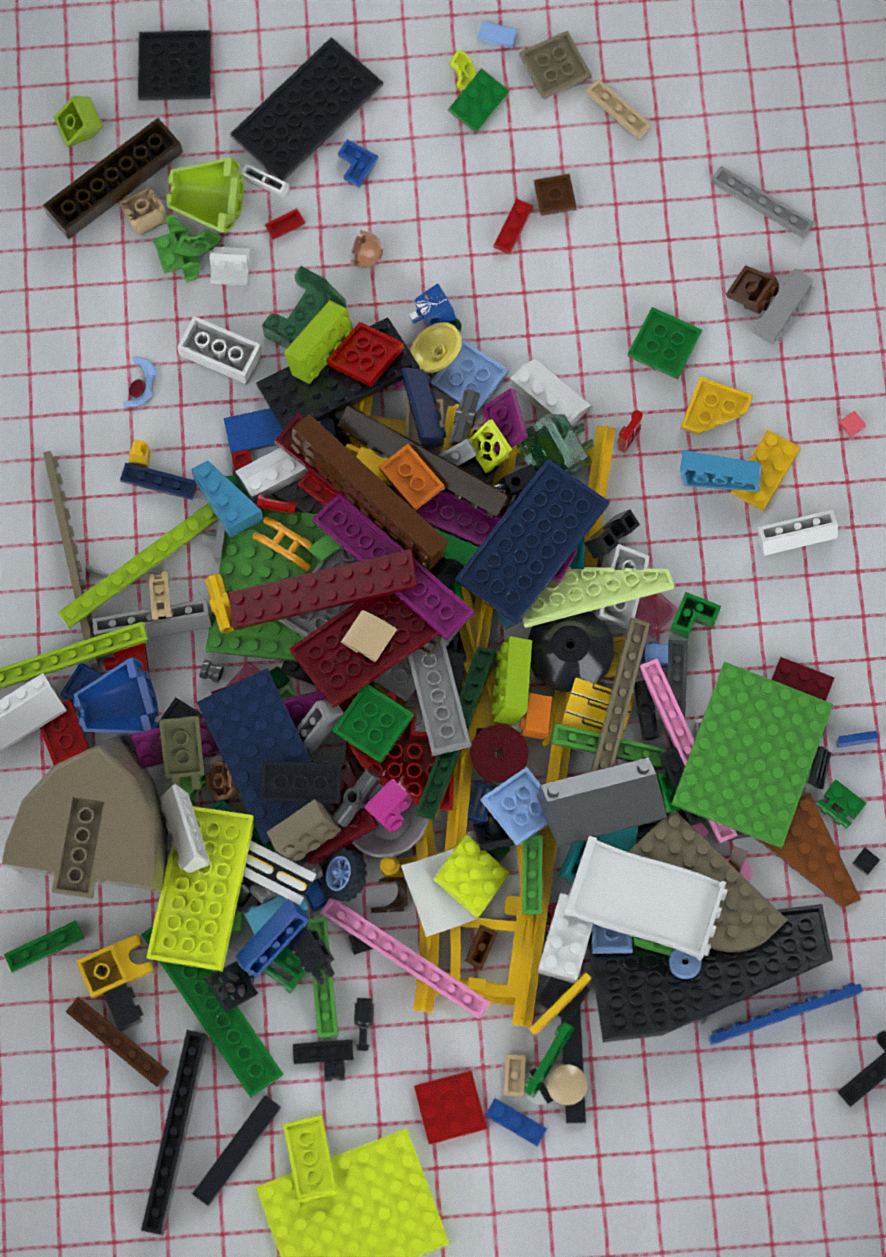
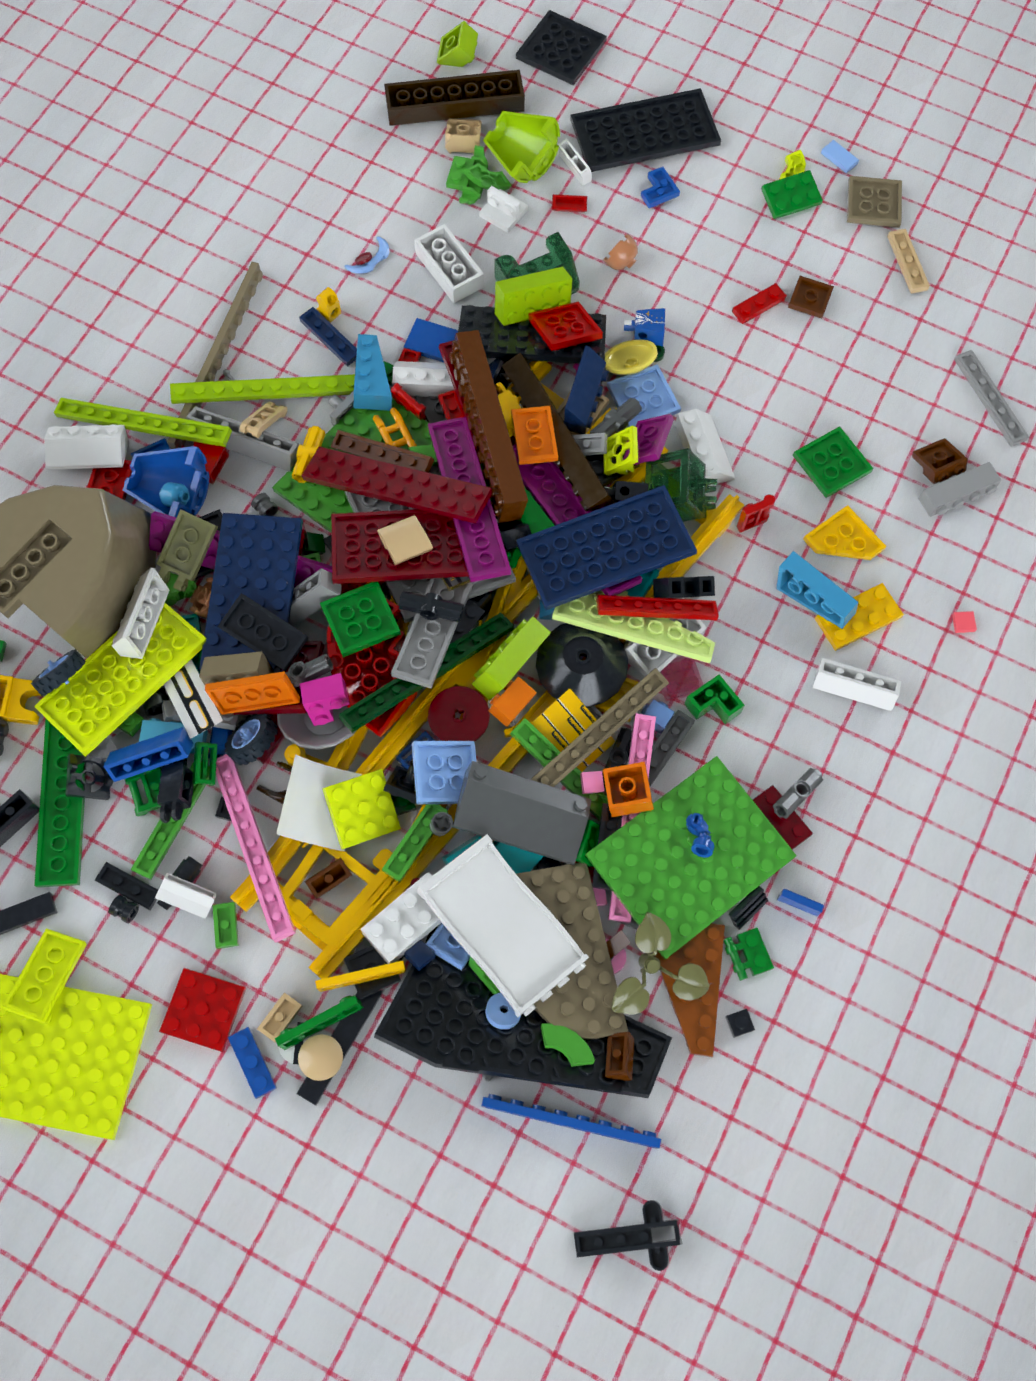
camera: 25 degrees right, 5 degrees down
(133, 708) = (174, 492): none -> dark azure head
(149, 917) = (58, 672): none -> black wheel
(286, 567) = (380, 451): none -> reddish brown plate
(317, 918) = (197, 763): none -> green tile
(327, 837) = (252, 693): none -> orange tile
(378, 1029) = (185, 895): none -> white piece
(423, 1033) = (225, 925): none -> bright green plate
(427, 679) = (431, 606): none -> black piece
(550, 849) = (441, 819): none -> dark grey wheel
(593, 961) = (419, 955): none -> dark blue tile
(603, 566) = (657, 607): none -> red tile
(639, 742) = (592, 782): none -> bright pink tile
(674, 732) = (628, 789): none -> orange brick
(747, 729) = (702, 845): none -> blue arm
(748, 956) = (568, 1043): none -> bright green tile
(762, 837) = (652, 936): none -> olive plant
(793, 942) = (620, 1056): none -> reddish brown slope
(803, 660) = (798, 793): none -> dark grey piece

